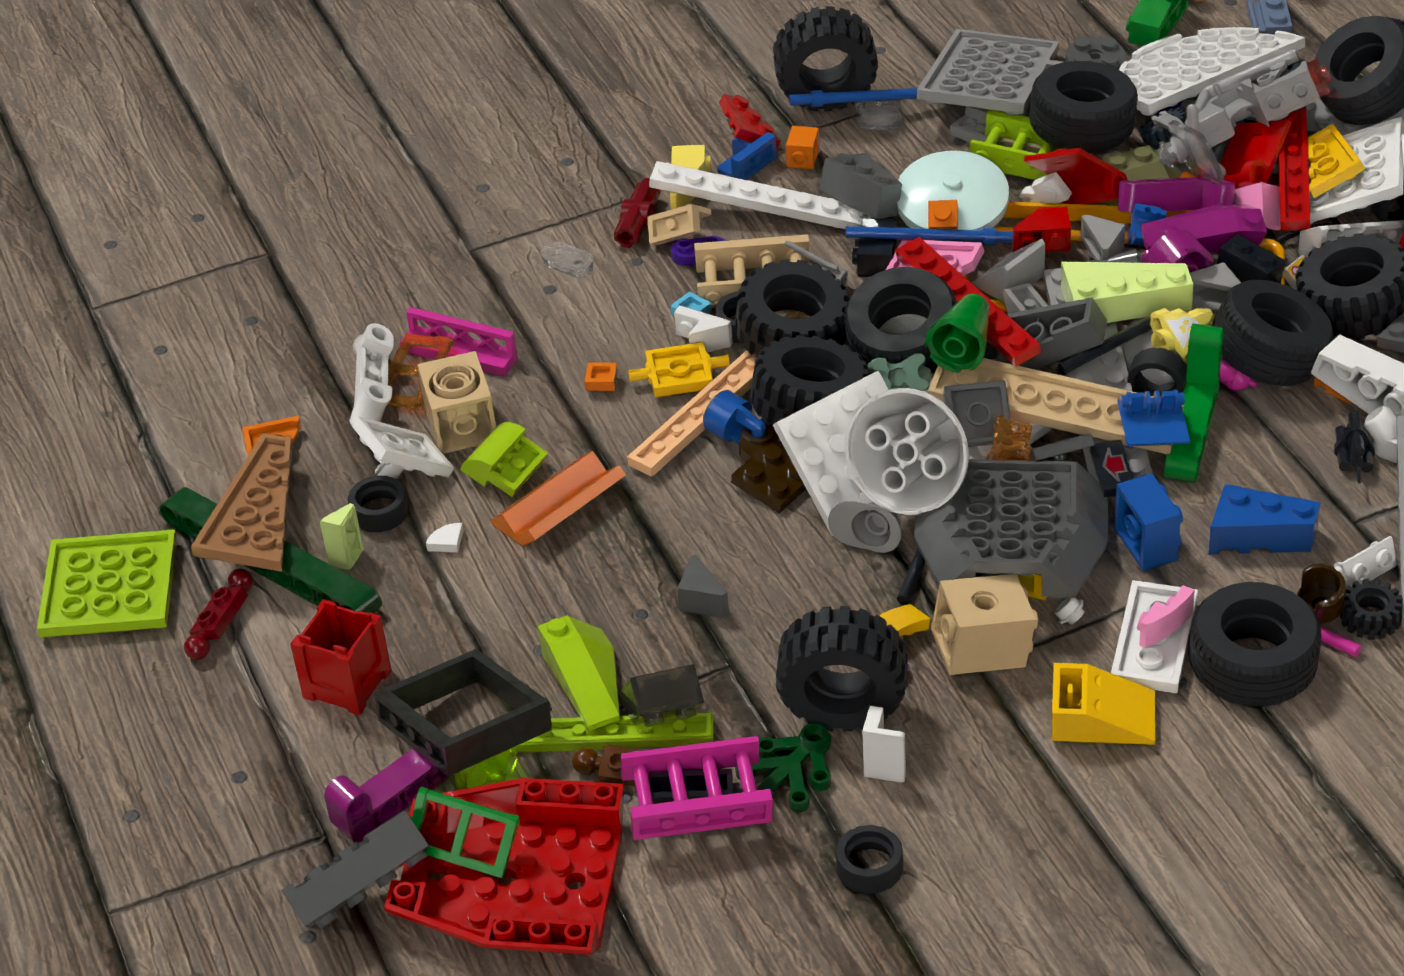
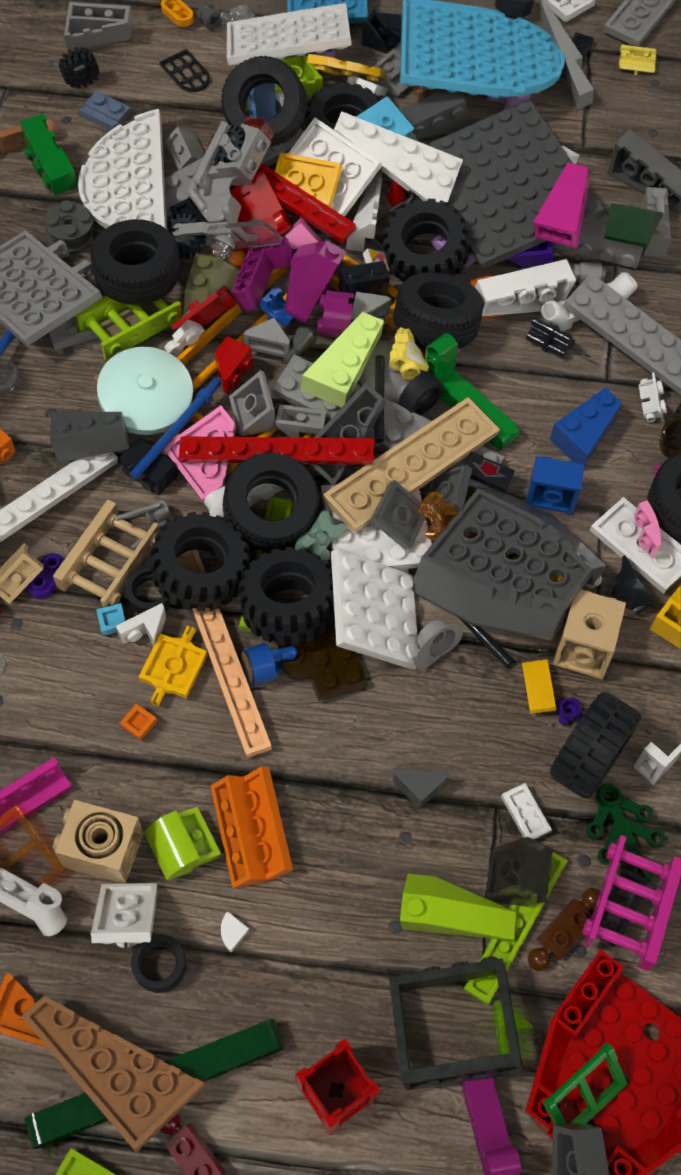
camera: 65 degrees left, 20 degrees up
(342, 537) = (195, 1015): yellowish green slope -> none
(738, 682) = (526, 812): none -> white plate
(907, 451) = (433, 576): white cone -> none
(943, 214) = (170, 409): orange plate -> none
(960, 335) = (333, 473): green cone -> none
(1088, 642) = (630, 590): none -> black hat
(1154, 419) = (477, 422): blue hinge -> none

